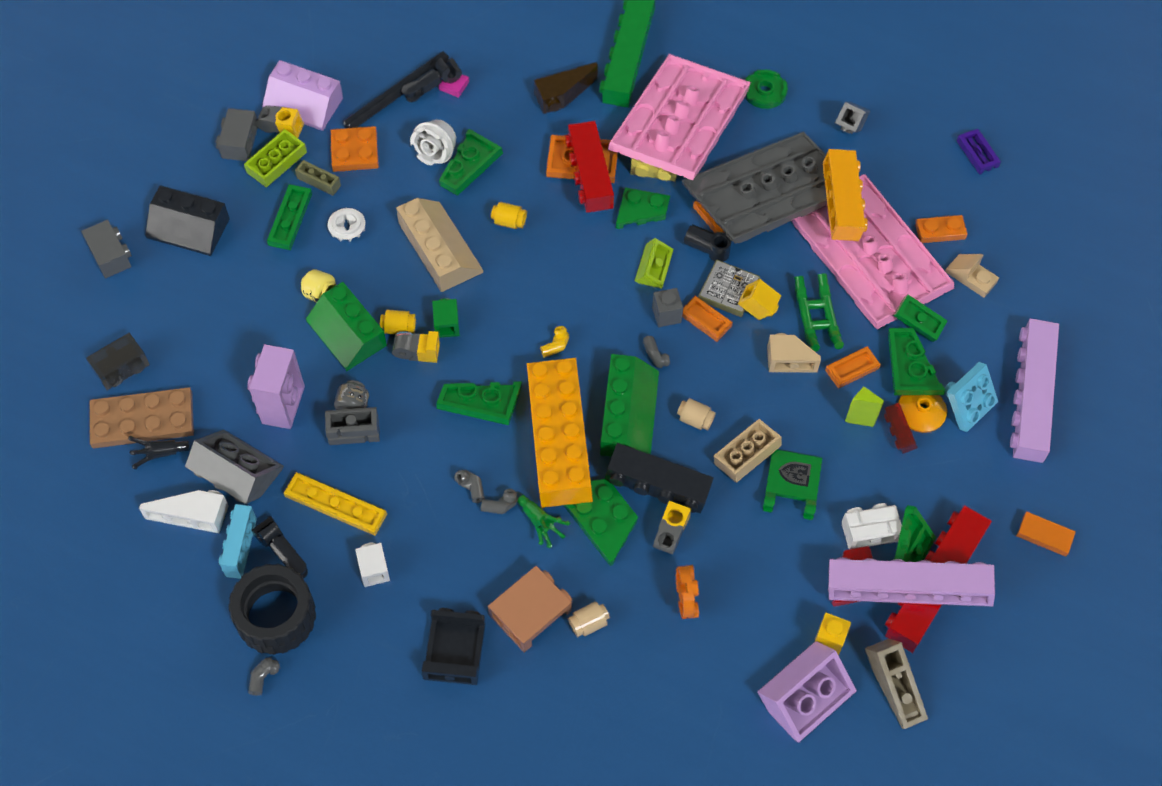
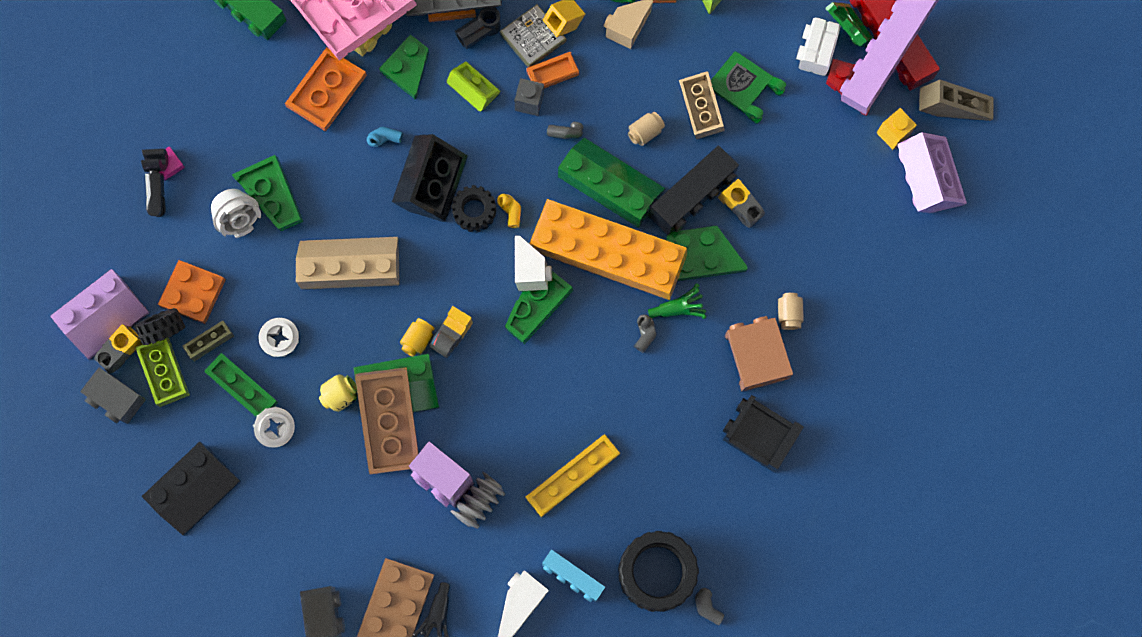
camera: 65 degrees left, 15 degrees up
(107, 249) = (181, 578): dark grey brick -> none
(232, 466) = (491, 550): dark grey slope -> none
(255, 256) = (285, 429): none -> white gear
(270, 535) = (576, 545): black piece -> none
(272, 436) = (478, 501): none -> light grey piece
(309, 135) = (159, 326): none -> black tyre
(313, 323) = (387, 419): none -> medium nougat plate
(351, 396) = (478, 415): dark grey head -> none
(352, 426) = (509, 425): dark grey brick -> none
(372, 564) = (651, 467): white brick -> none
(390, 94) = (144, 221): black axle -> none
(446, 317) = (435, 292): green brick -> none
(471, 482) = (614, 347): dark grey arm -> none
(506, 375) = (530, 267): none -> white slope
(509, 215) = (354, 185): yellow brick -> none
(536, 301) = (471, 194): none -> black tyre
(548, 268) = (430, 177): none -> black slope
(562, 88) = (234, 71): dark brown slope -> none
(566, 217) = (382, 135): none -> dark azure arm
(590, 167) = (346, 86): red brick -> none
(687, 590) = (812, 220): orange plate -> none

